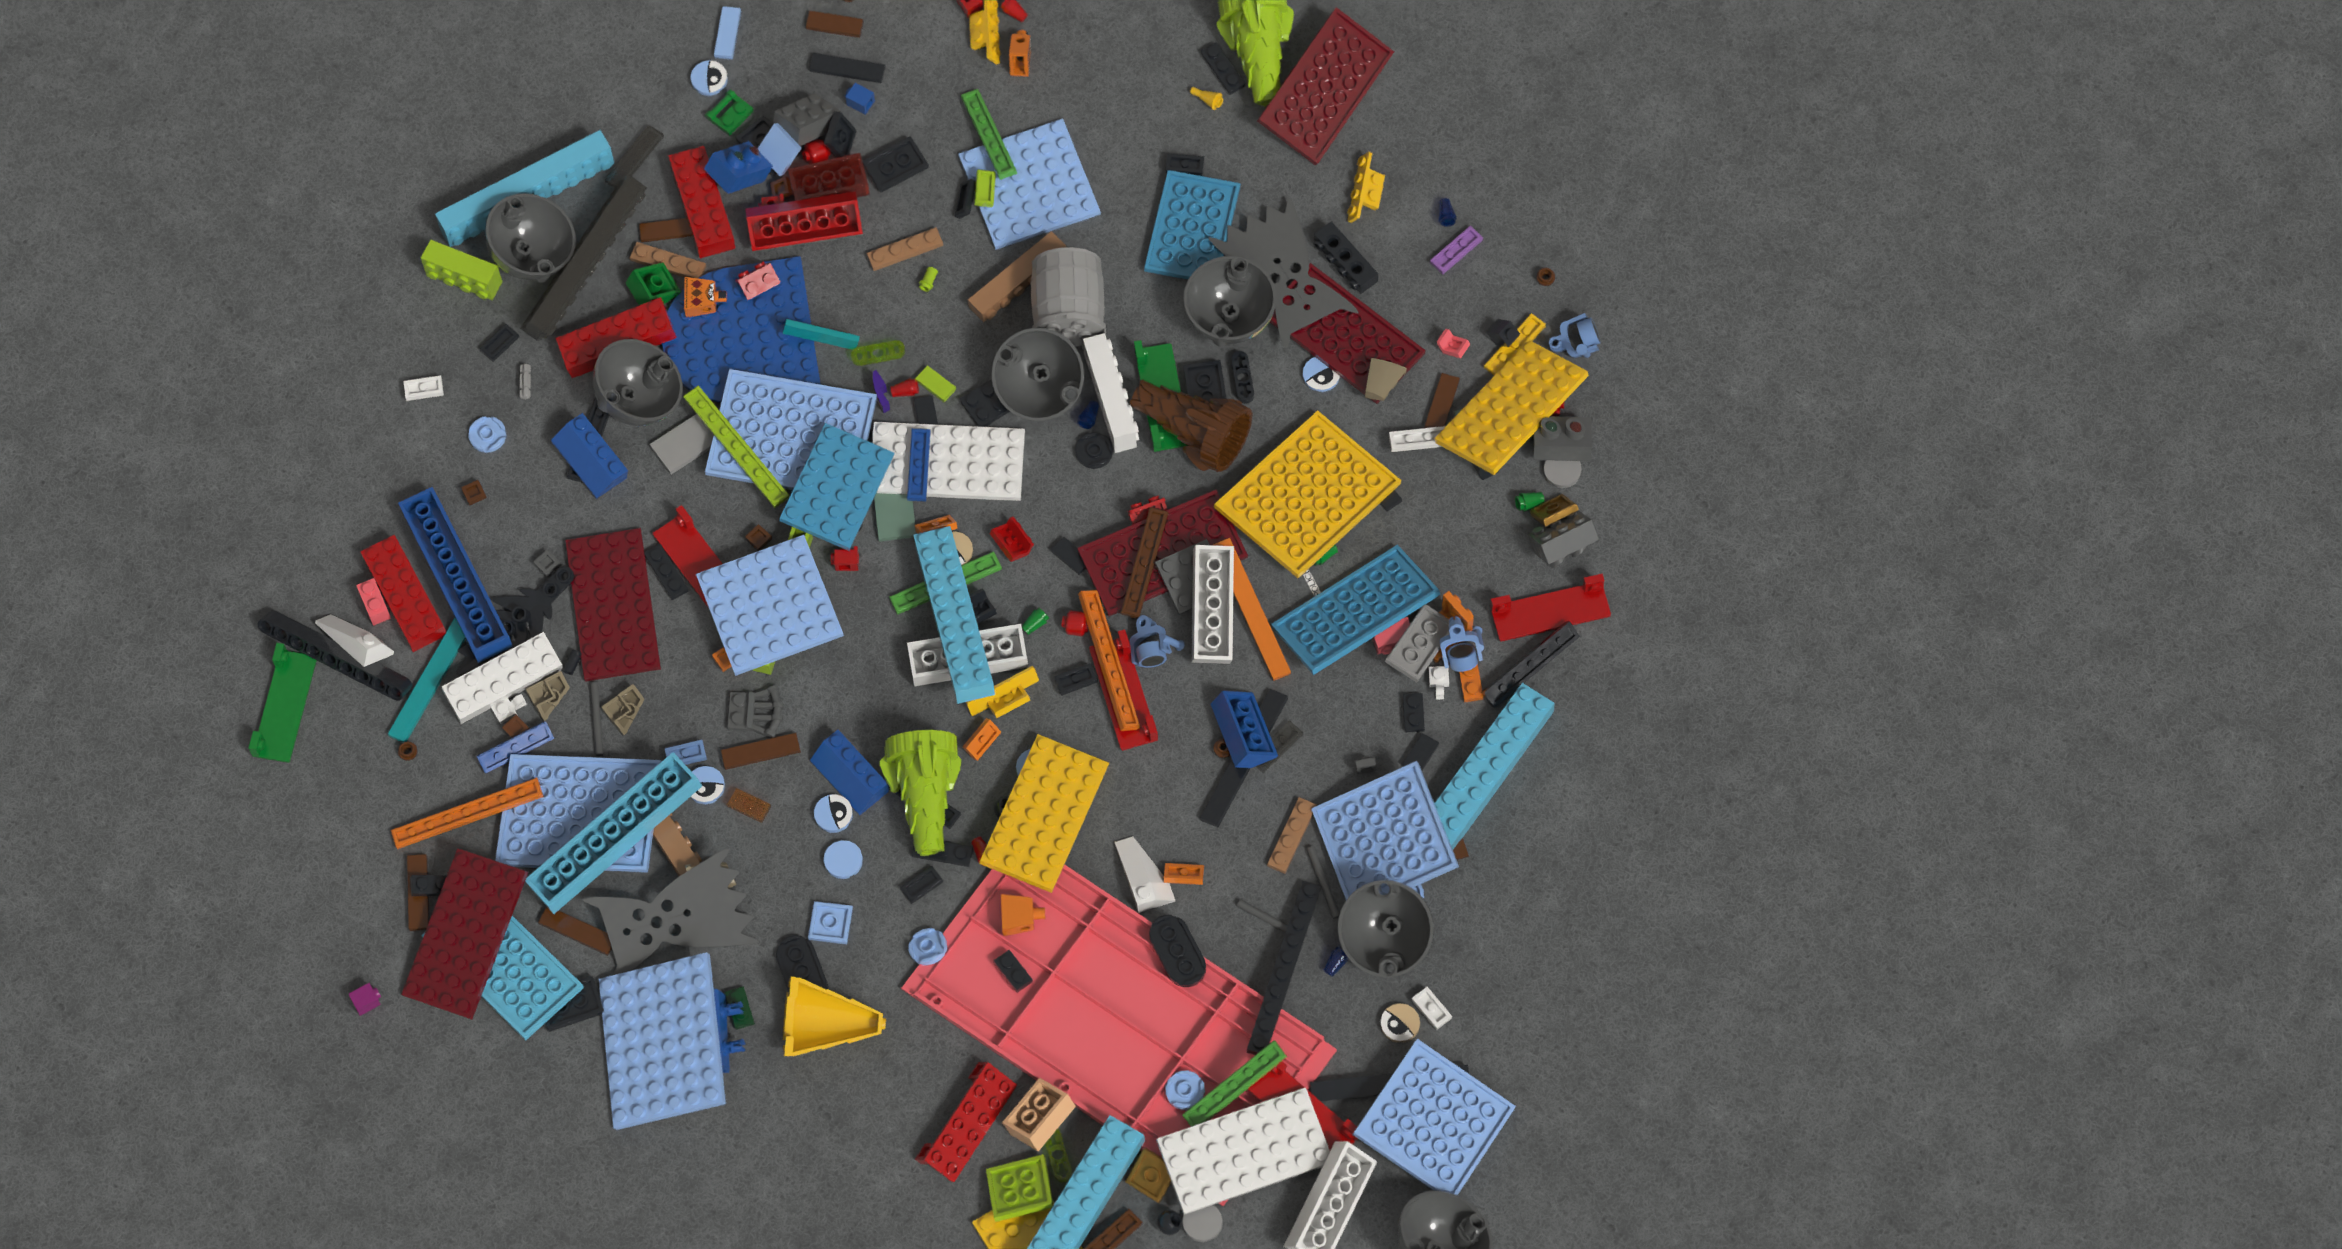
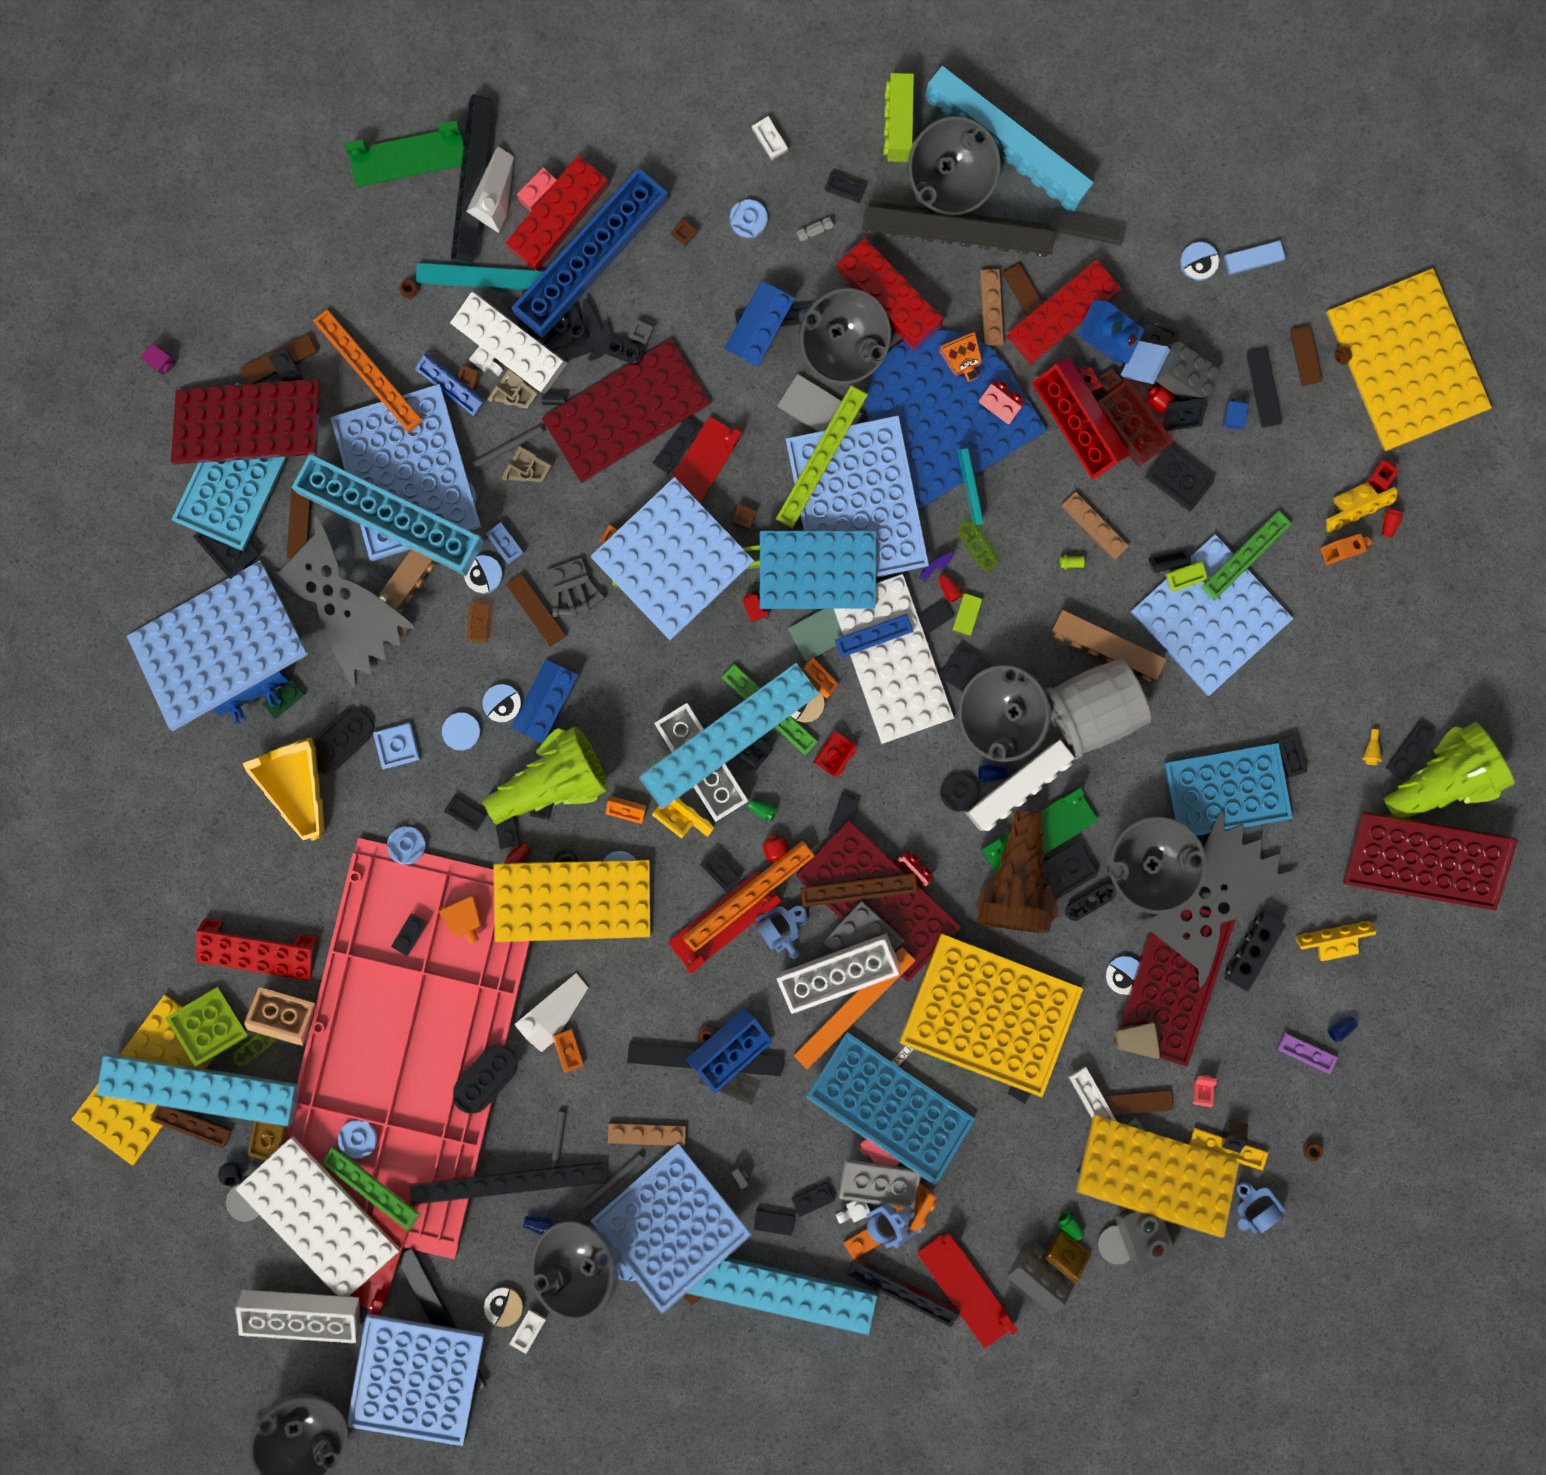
camera: 65 degrees right, 20 degrees up
(652, 283) = (958, 305): green slope -> none
(733, 116) = (1168, 302): green plate -> none

